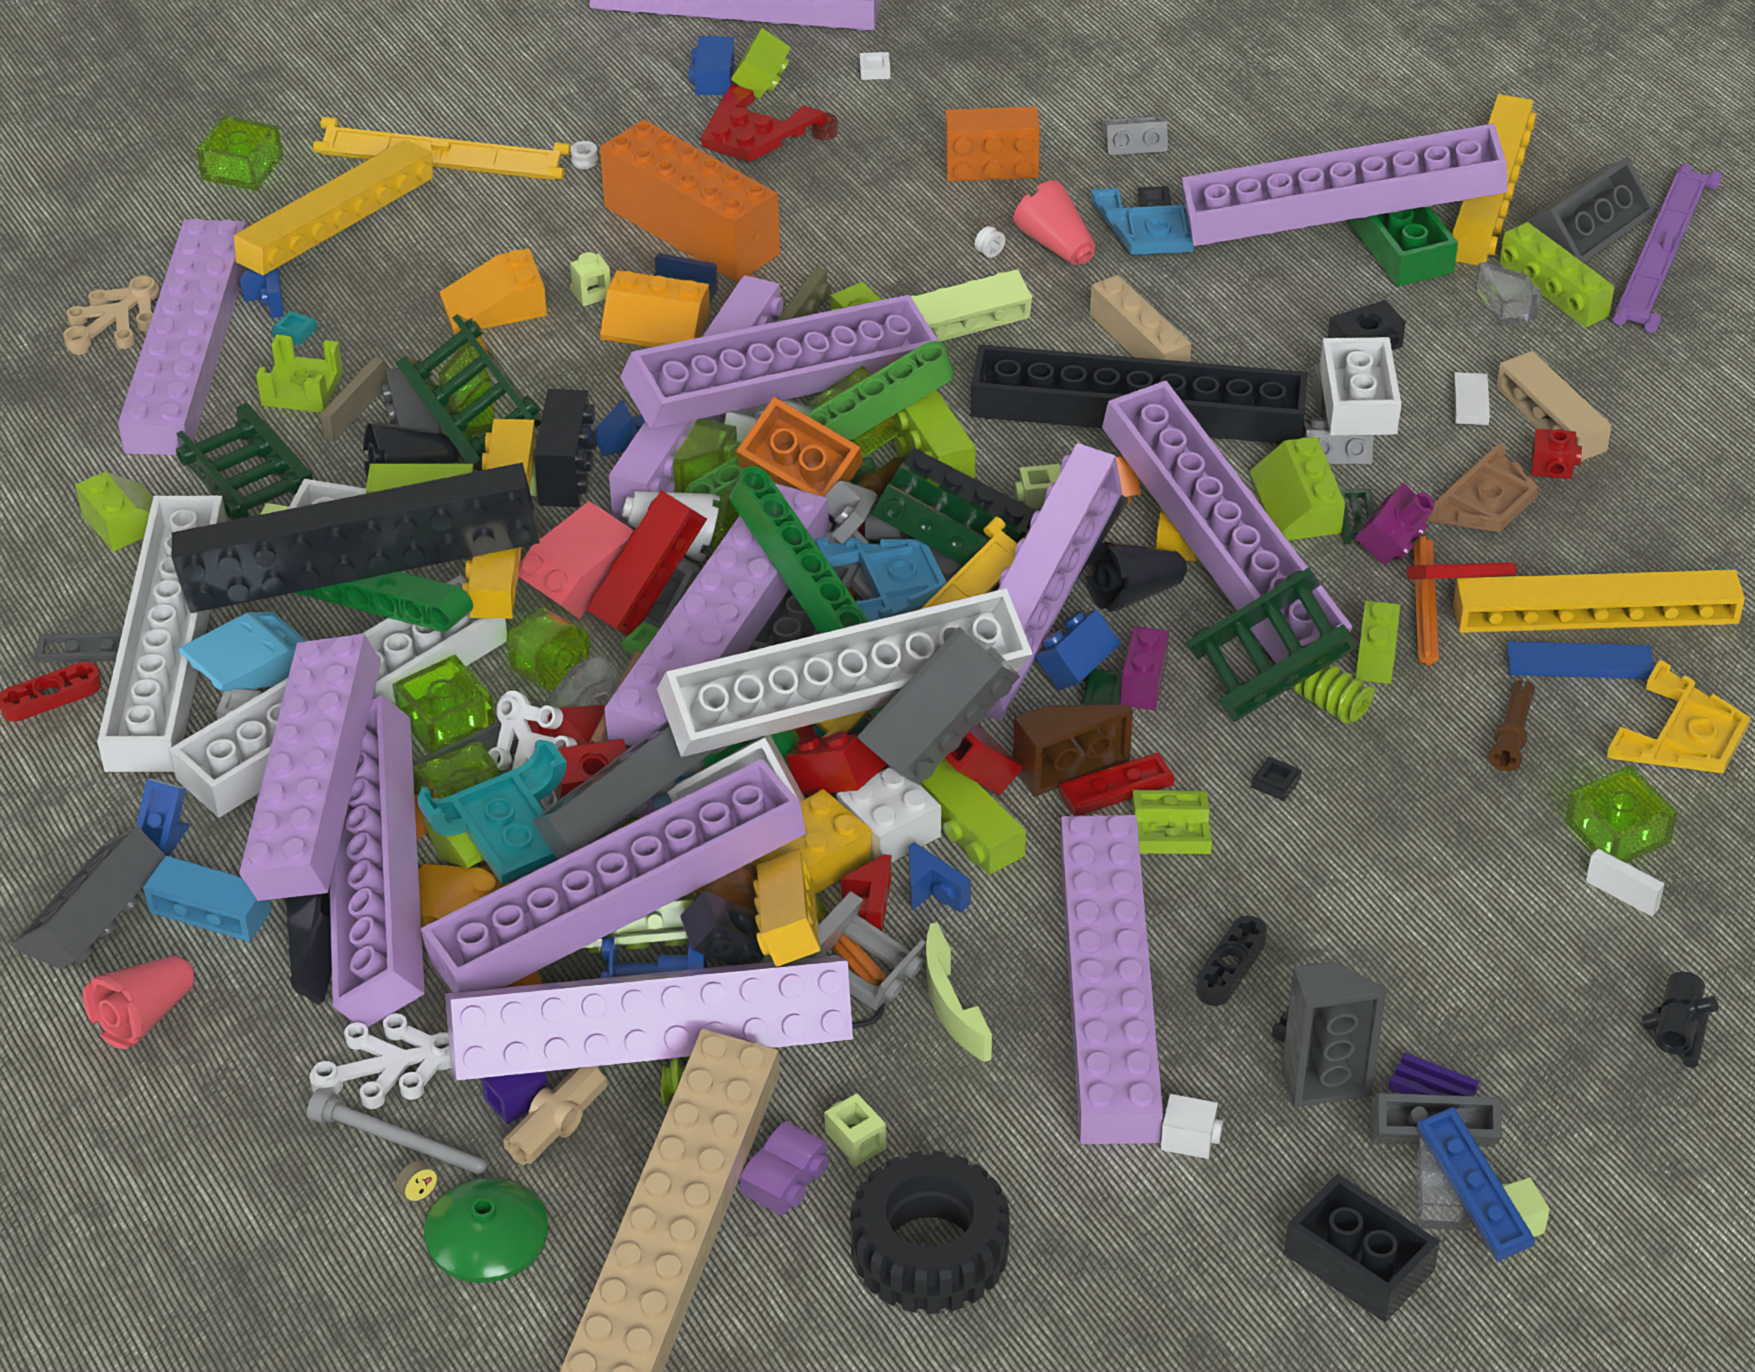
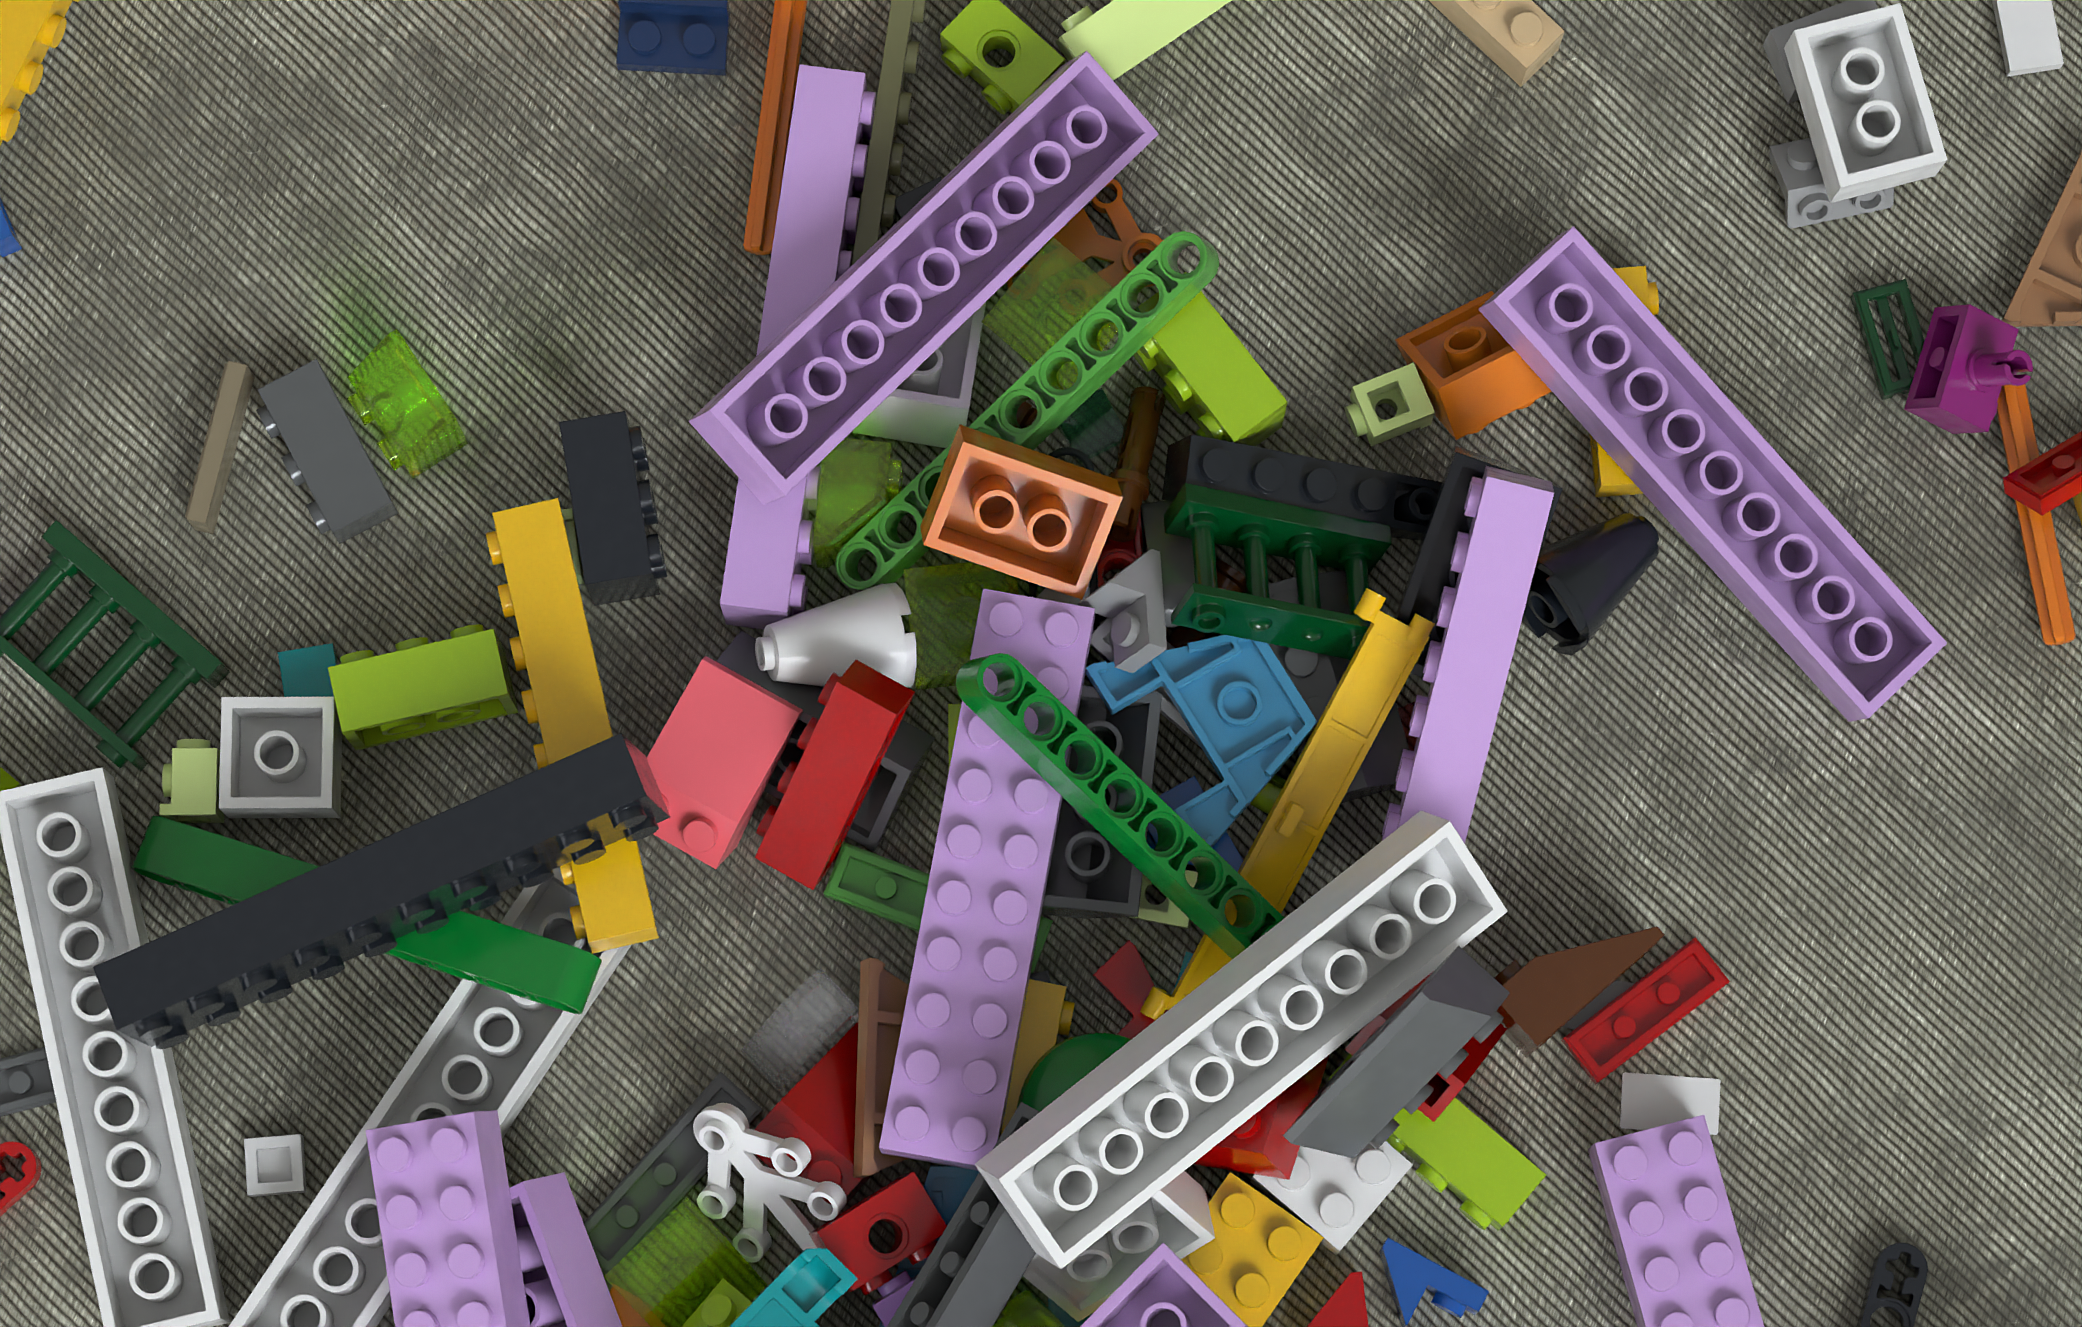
camera: 15 degrees left, 35 degrees up
(245, 652) = (268, 1098): medium azure slope -> none
(296, 326) = (54, 281): teal tile -> none
(300, 381) = (112, 413): lime panel -> none
(406, 446) = (354, 573): black cone -> none
(437, 397) = (416, 501): dark green fence -> none
(444, 703) = (599, 1115): clear neon green brick -> none
(497, 292) = (366, 134): light orange slope -> none
(546, 648) = (723, 966): clear neon green brick -> none
(587, 272) = (519, 65): yellowish green brick -> none
(617, 430) = (667, 415): blue slope -> none
(654, 309) = (651, 122): light orange slope -> none
(1077, 387) = (1501, 157): black brick -> none
(1077, 648) = (1534, 767): blue brick -> none
(1103, 688) = (1585, 838): dark green tile -> none
(1144, 668) = (1641, 774): magenta brick -> none
(1172, 821) = (1744, 1071): lime slope -> none
(1276, 778) = (1878, 943): black tile -> none
(1299, 490) = (1794, 317): lime slope -> none
(1301, 661) = (1843, 782): dark green fence -> none
(1337, 693) = (1937, 756): lime piece -> none
(1378, 642) = (1982, 635): lime brick -> none

